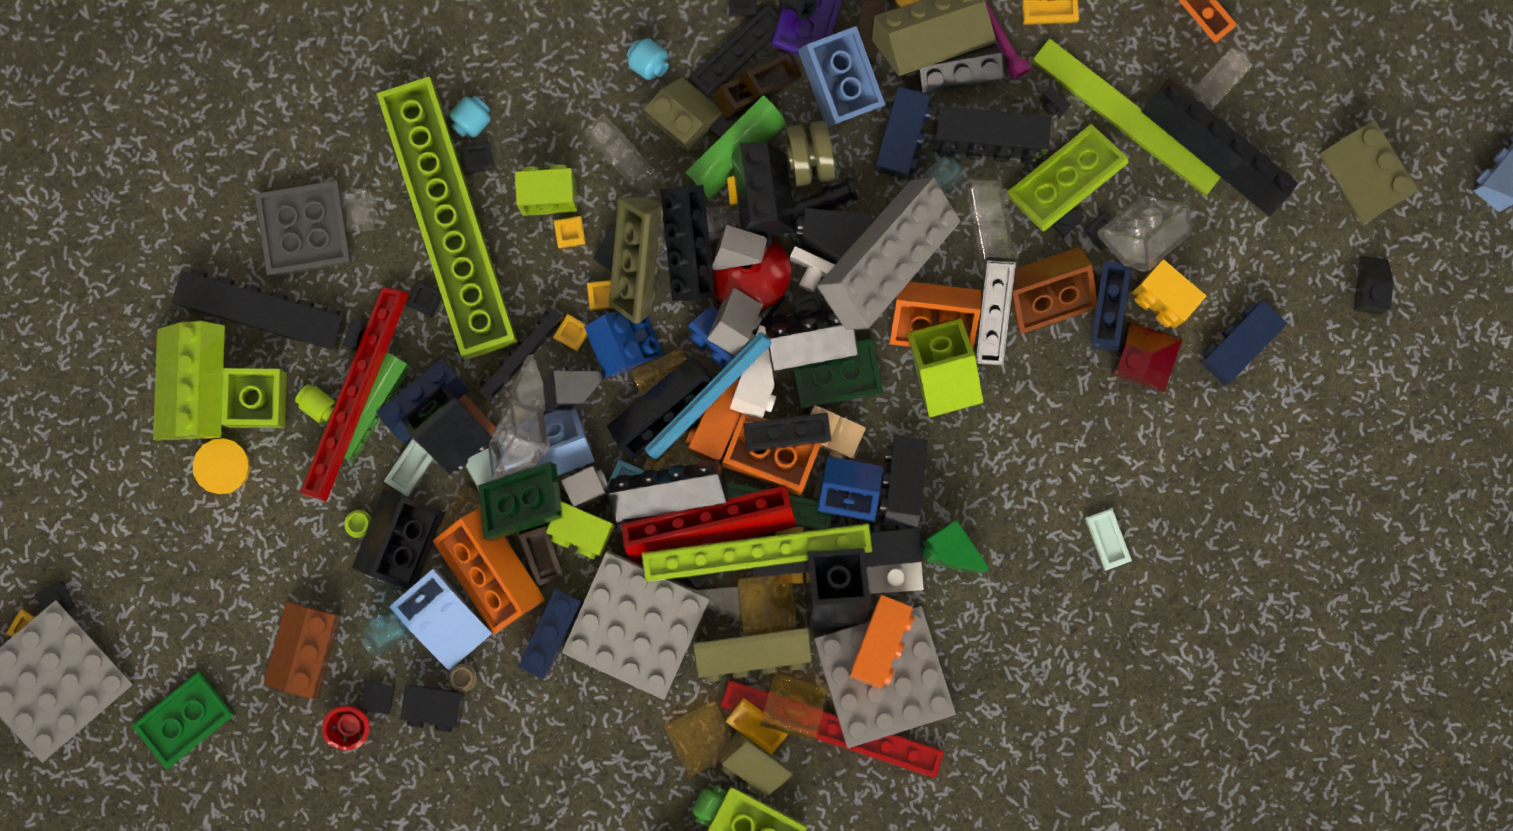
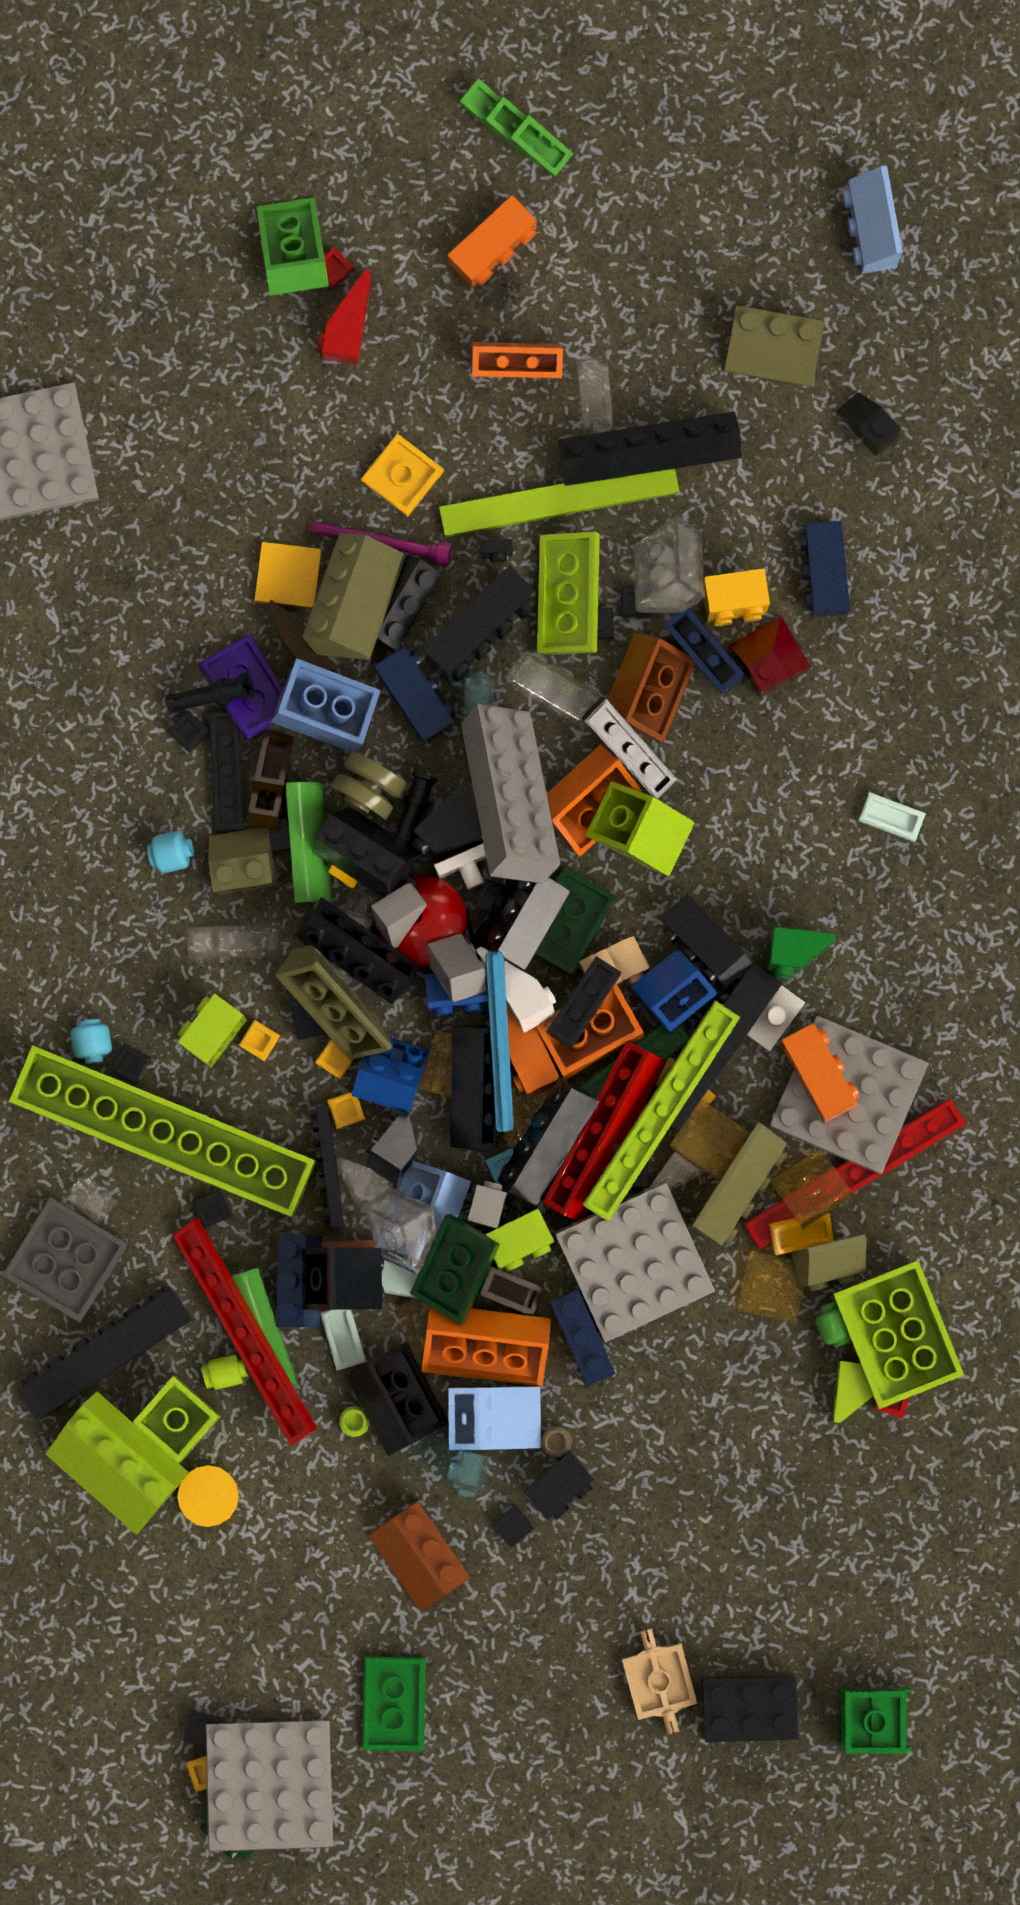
camera: 50 degrees left, 0 degrees up
(349, 724) = (516, 1568): red helmet -> none
(354, 335) = (194, 1292): black tile -> none
(836, 588) = (745, 1071): black slope -> none

